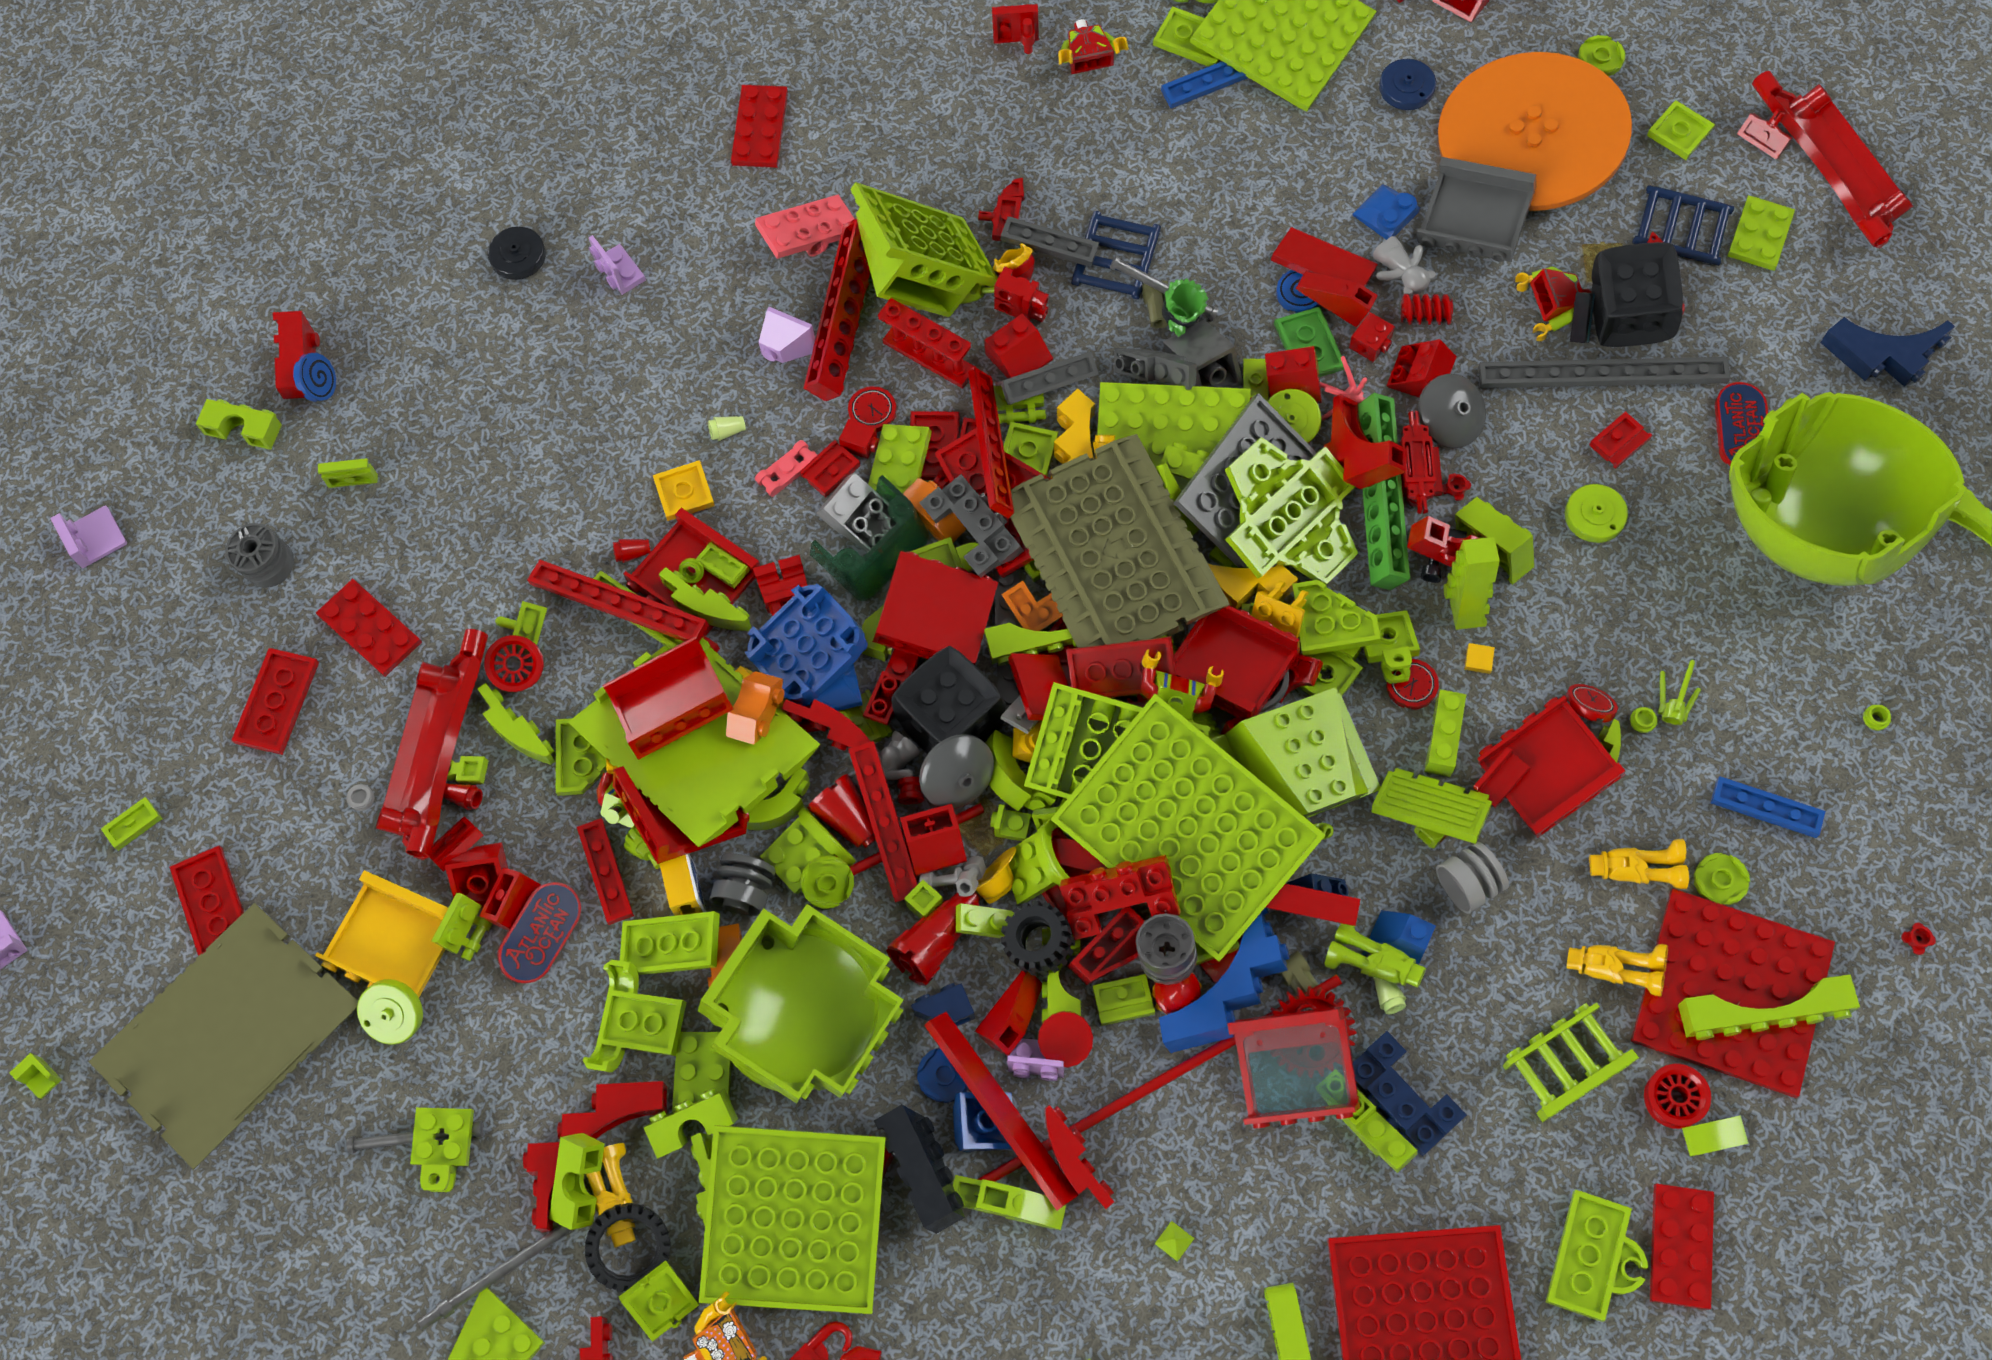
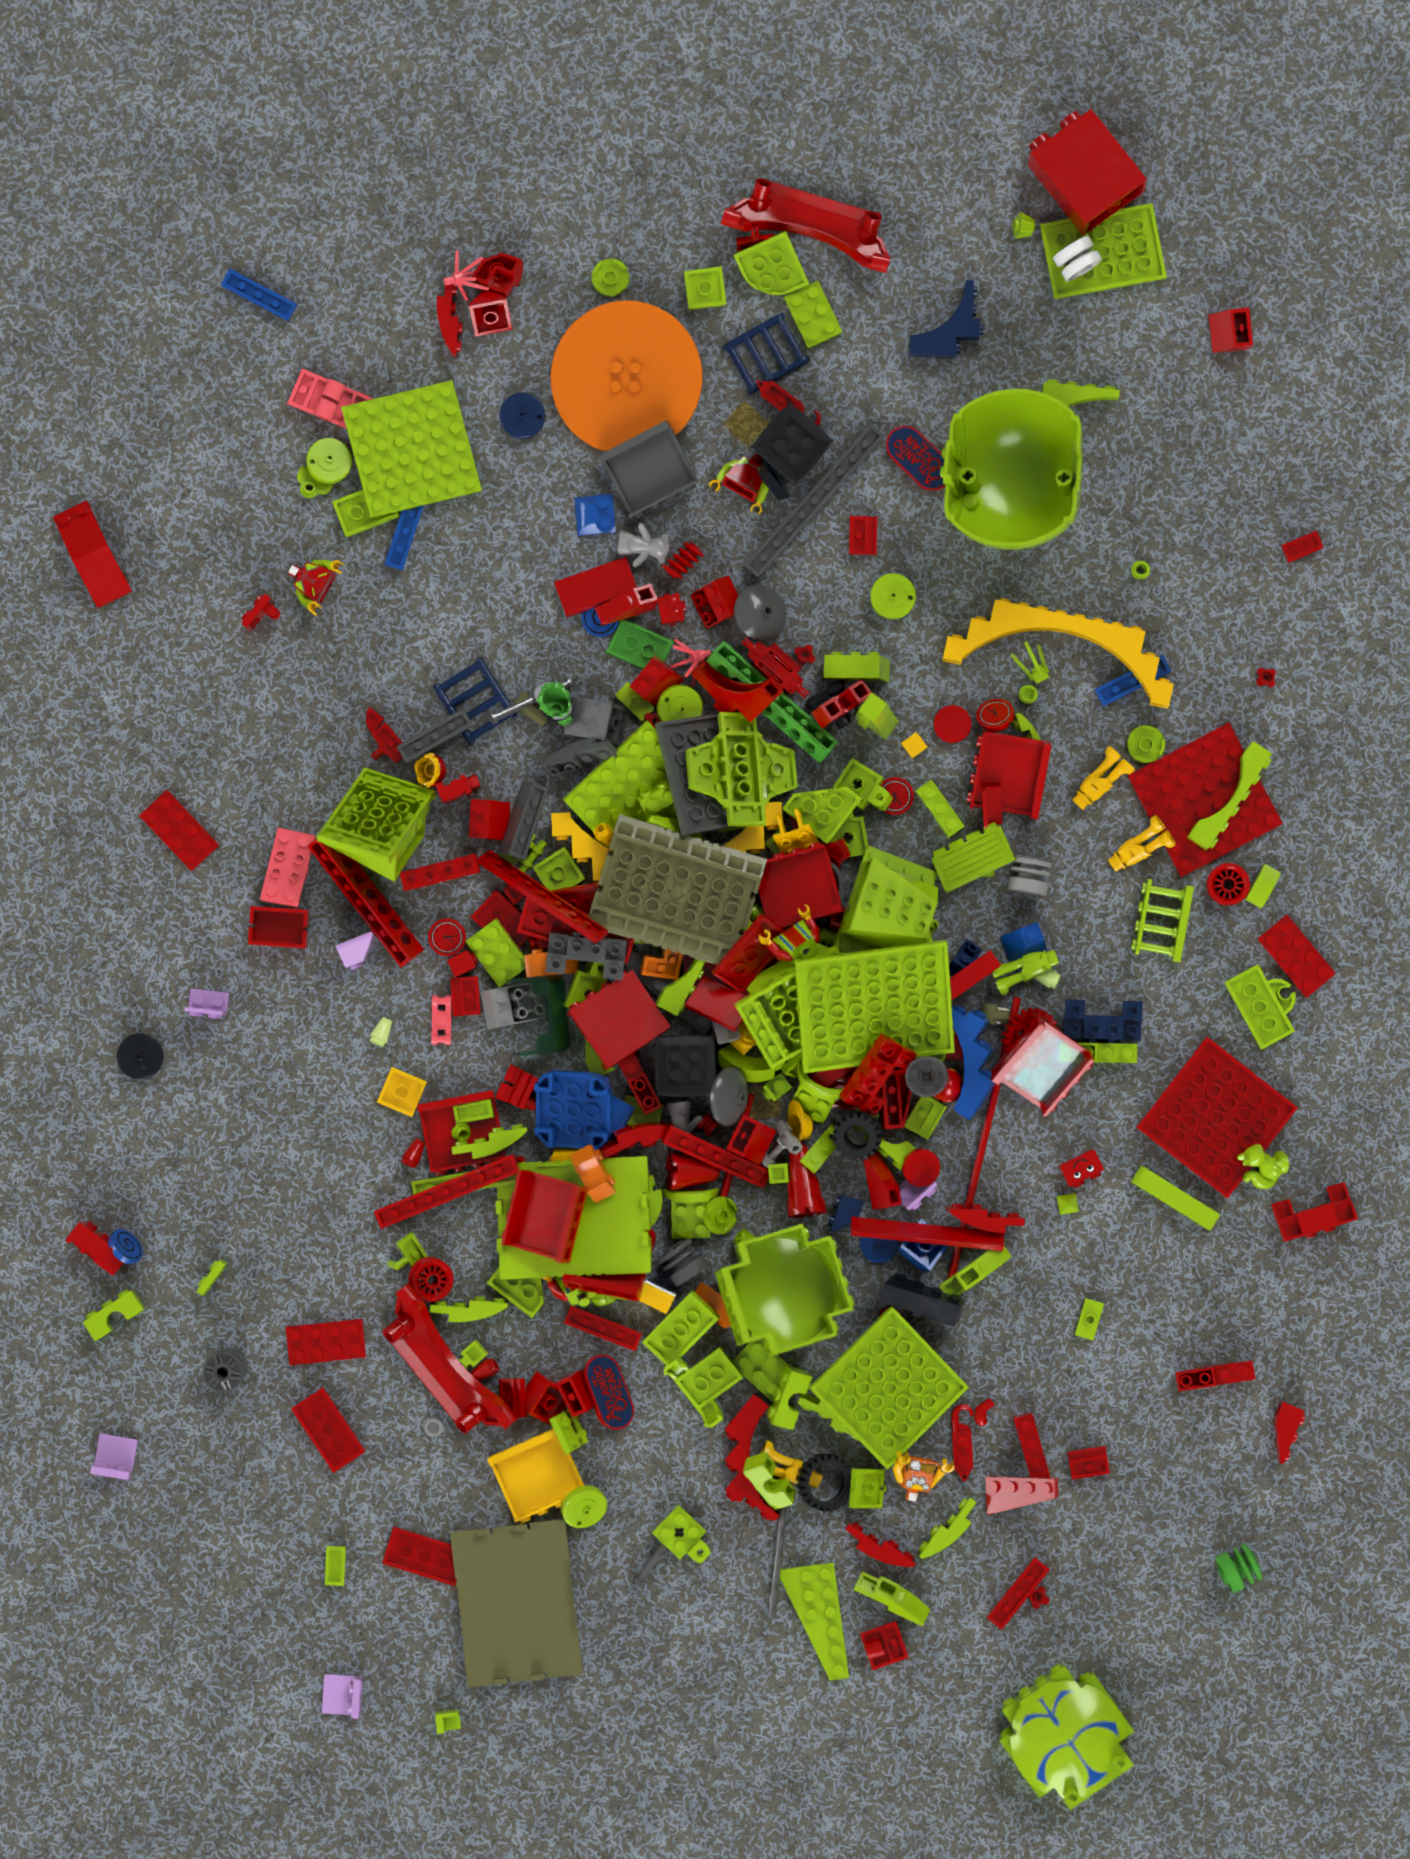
camera: 55 degrees left, 20 degrees up
(746, 262) = (279, 927): none -> red piece
(1227, 1218) = (1081, 1168): none -> red brick
(1537, 675) = (952, 724): none -> red tile
(1765, 159) = (772, 266): none -> lime plate
(1791, 751) = (1017, 618): none -> yellow arch

